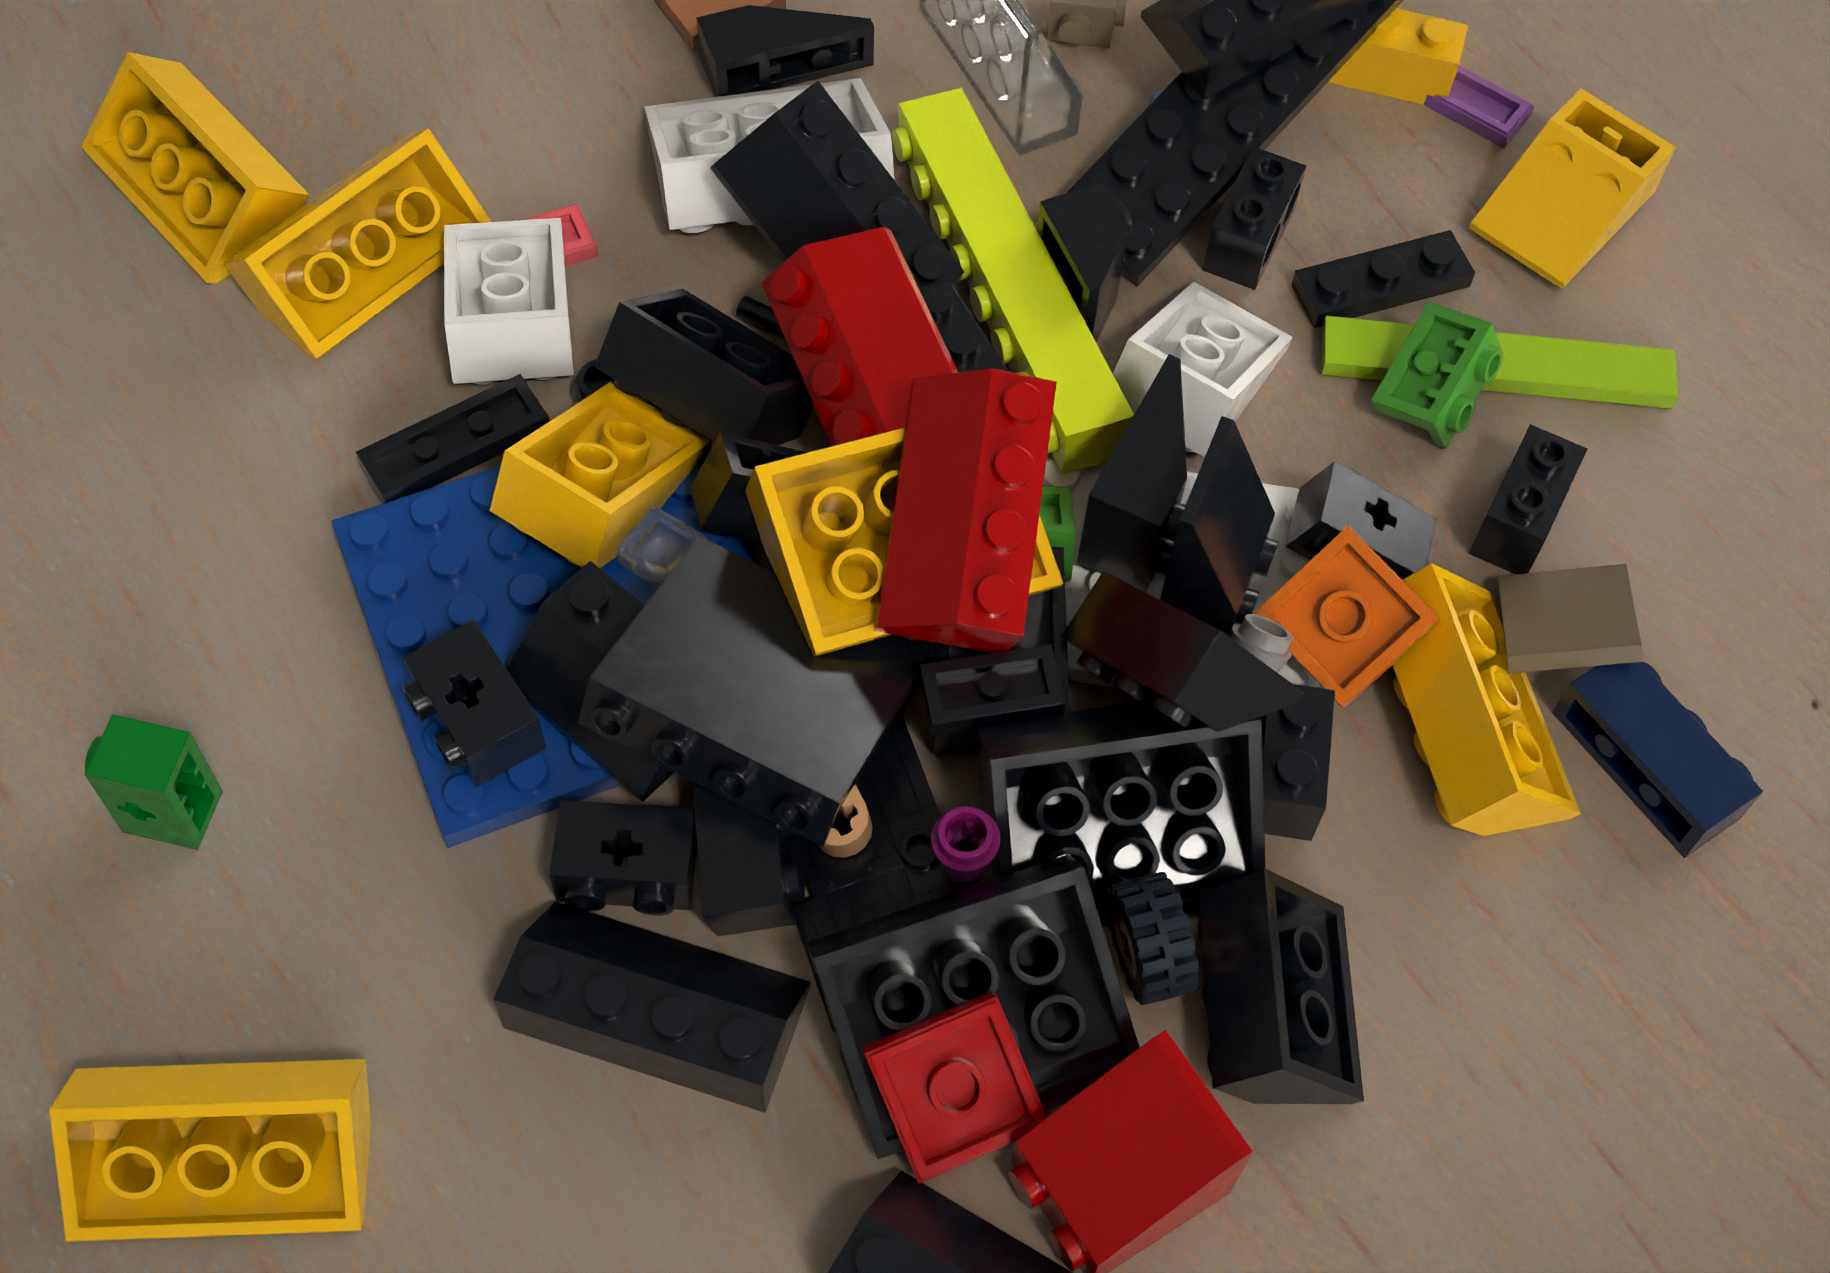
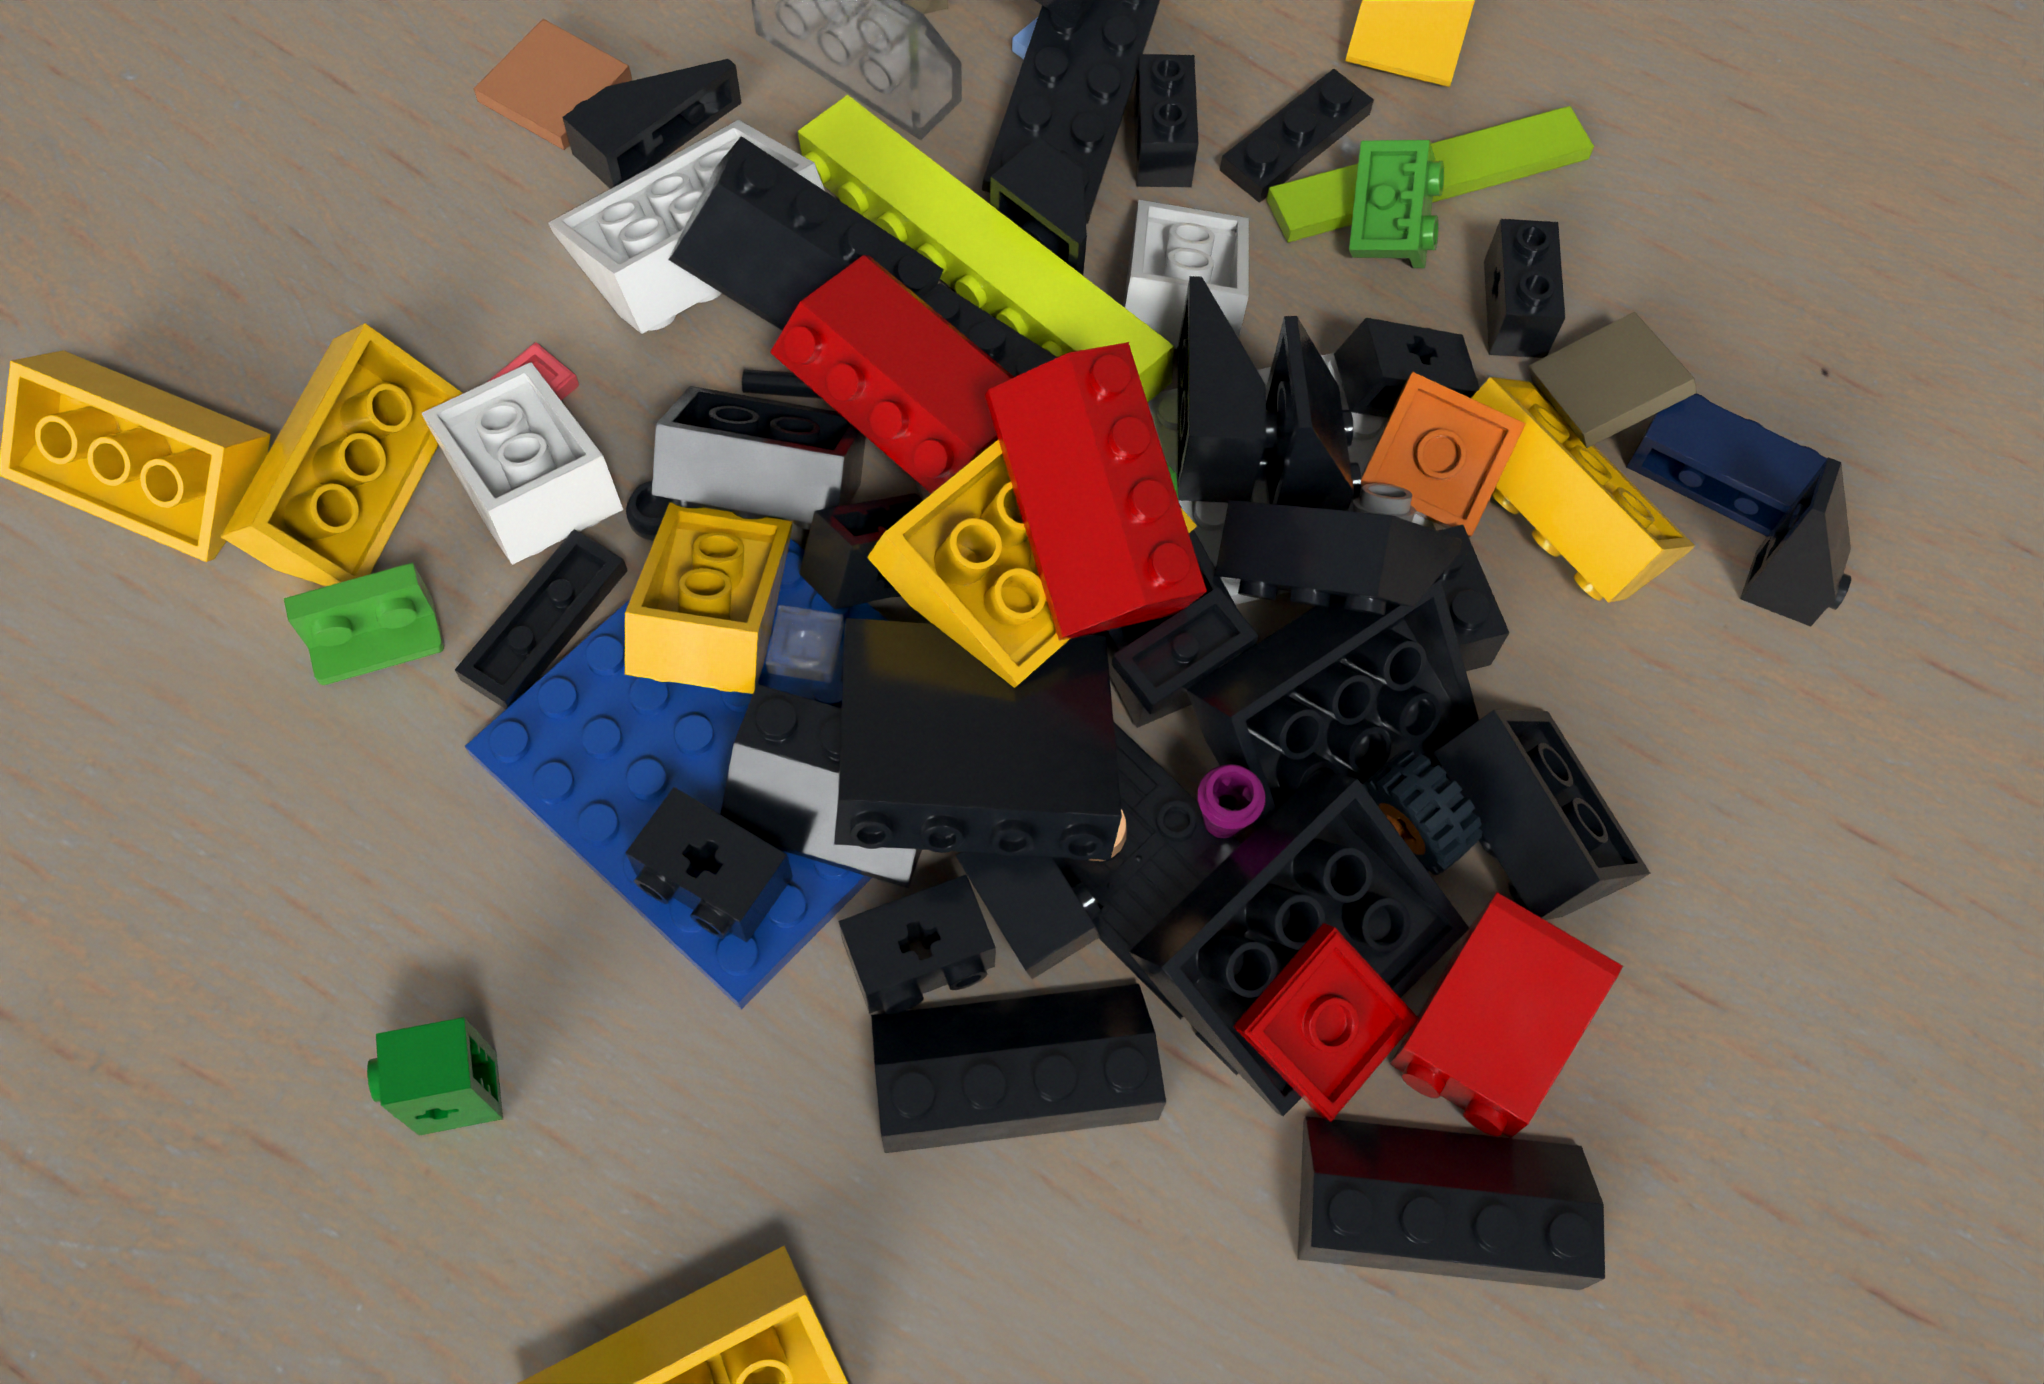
camera: 25 degrees left, 5 degrees up
(304, 382) = (366, 623): none -> bright green bracket
(1678, 858) = (1805, 555): none -> black slope

